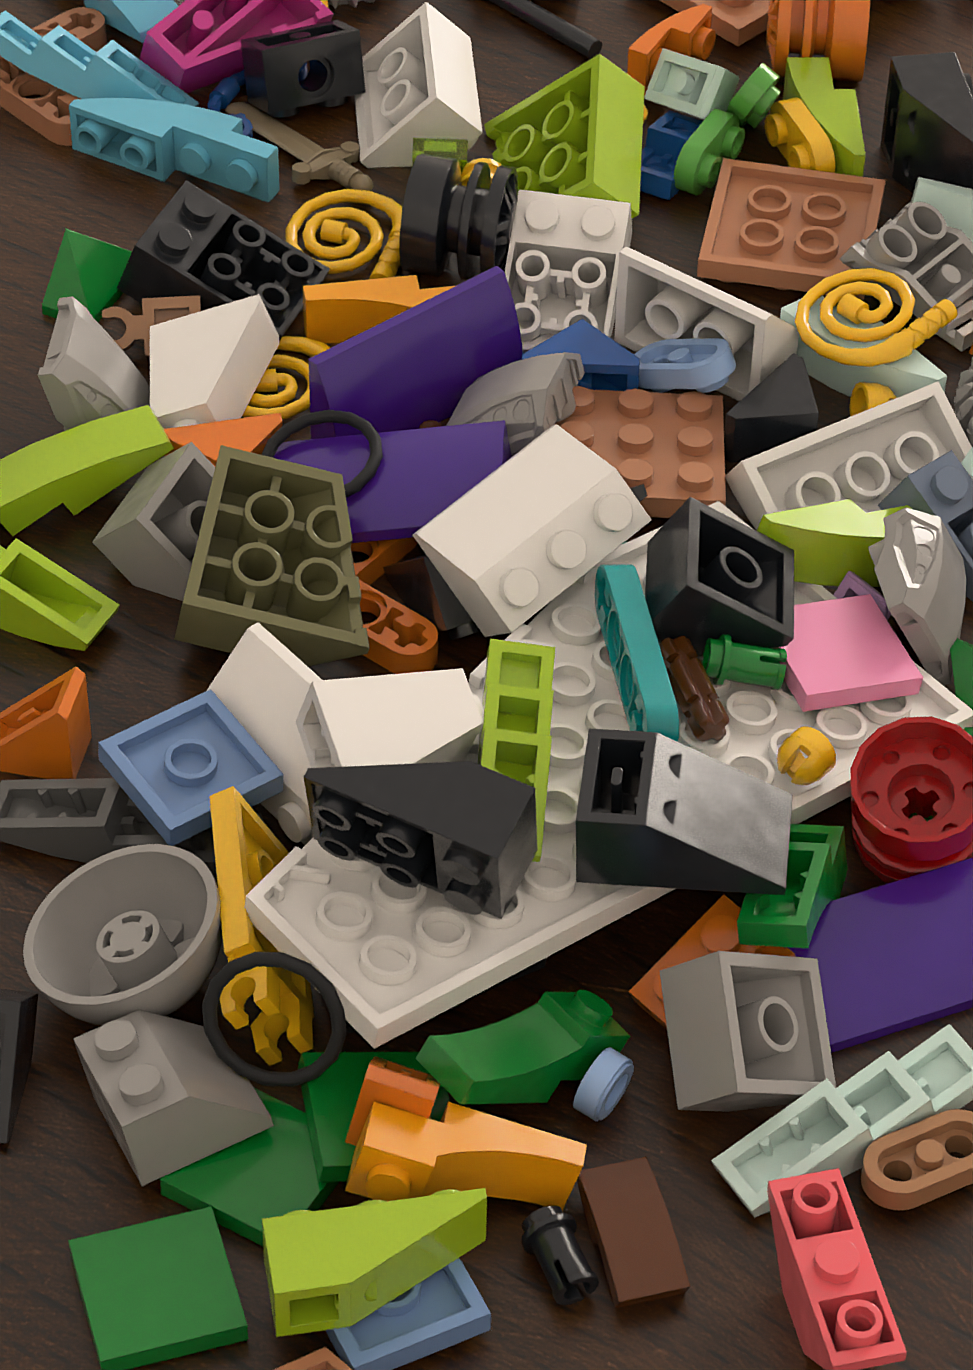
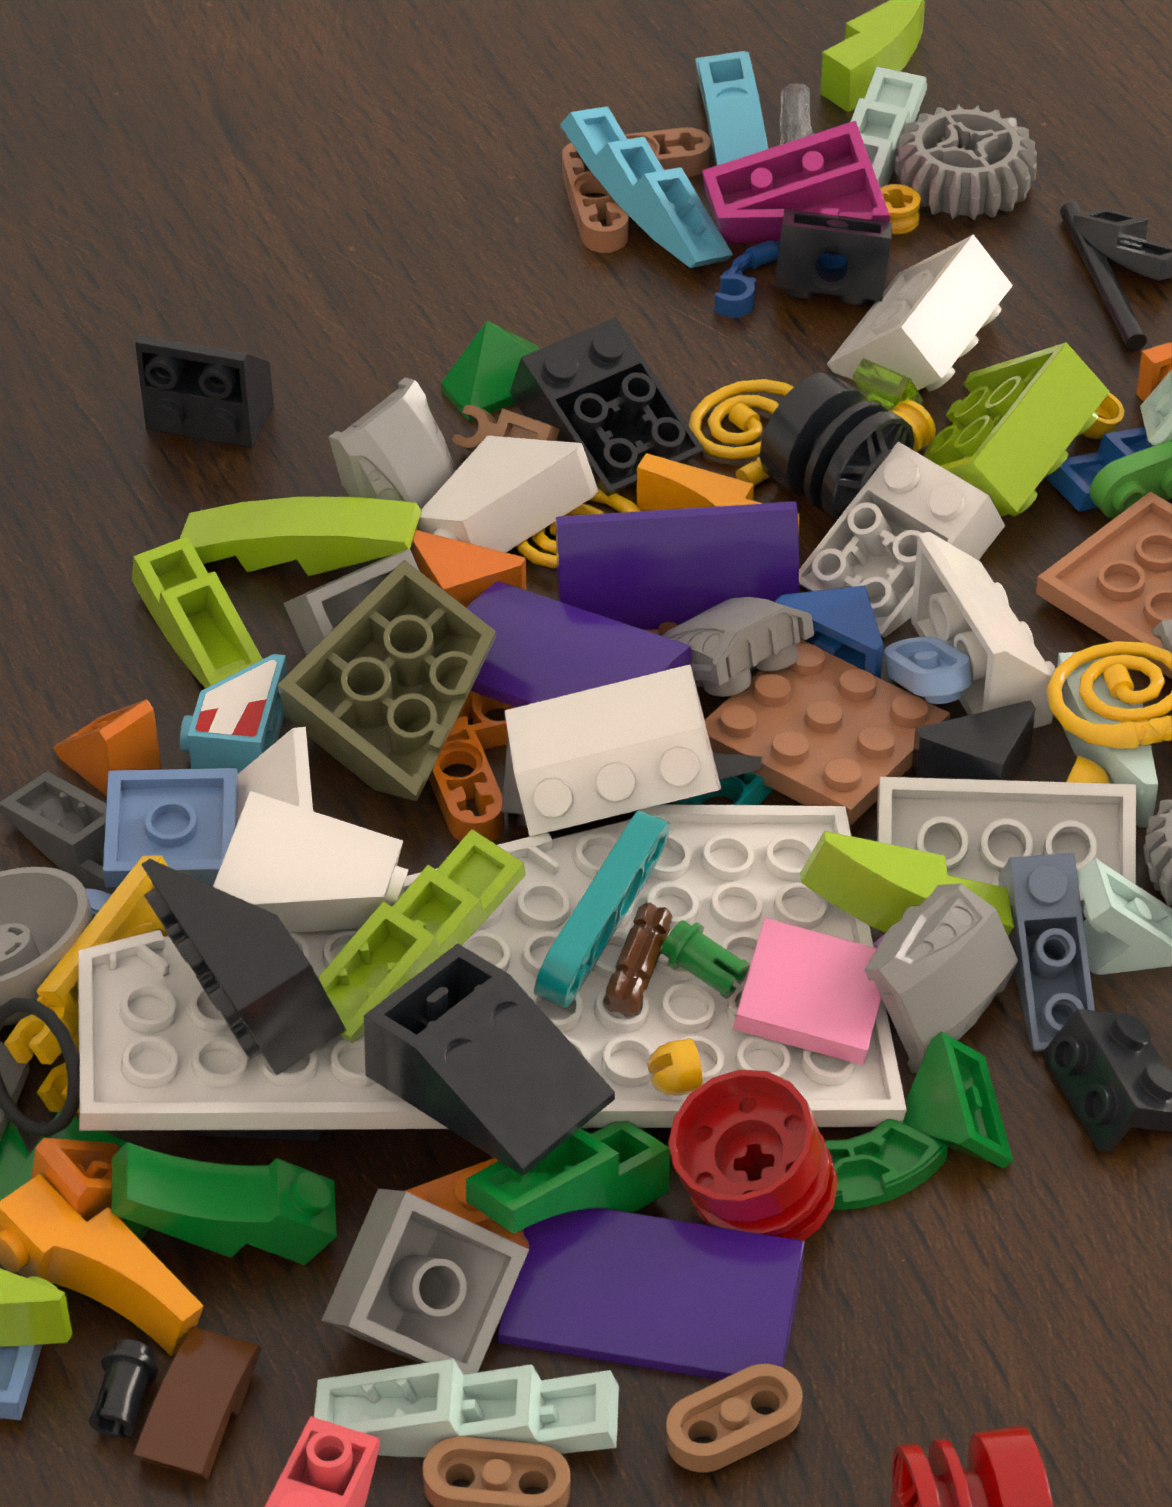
camera: 35 degrees right, 0 degrees up
(142, 662) = (236, 717): none -> slope
(171, 136) = (670, 276): medium azure slope -> none
(317, 161) = (789, 344): dark tan sword -> none
(335, 417) = (529, 573): black piece -> none
(603, 1084) = (282, 1266): light blue tile -> none
(718, 579) = (740, 876): black slope -> none

